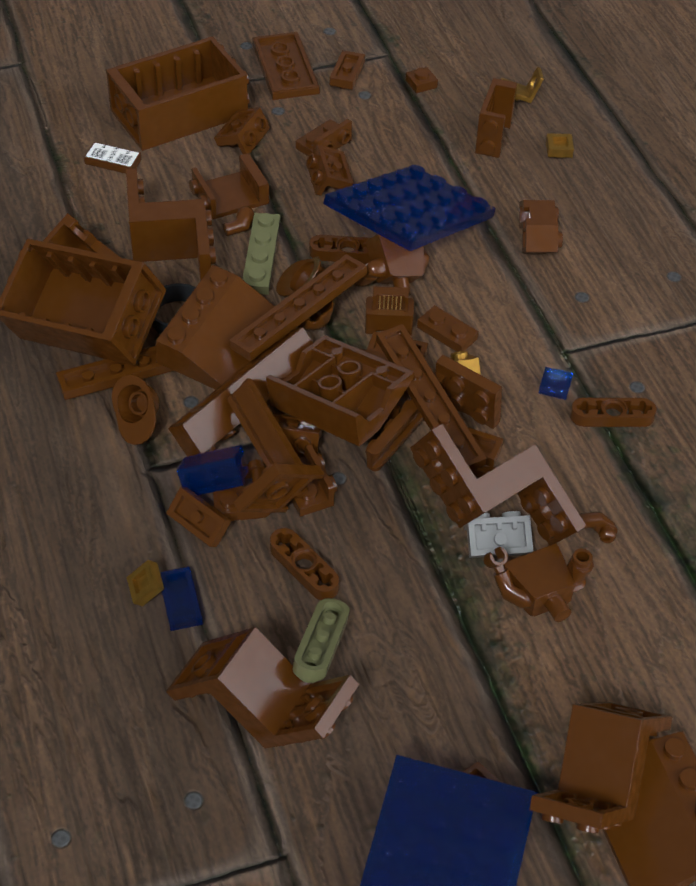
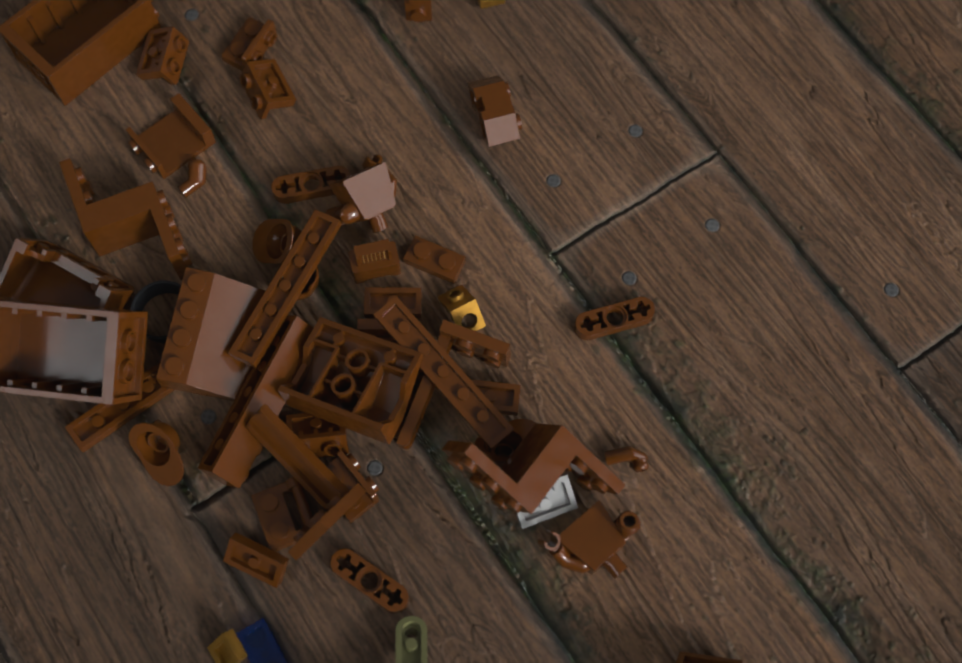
camera: 15 degrees left, 20 degrees up
(112, 157) = (37, 126): tile -> none
(213, 470) = (255, 506): clear blue hinge -> none
(262, 251) = (226, 212): olive plate -> none
(410, 206) = (361, 127): clear blue plate -> none
(555, 383) = (553, 297): clear blue tile -> none

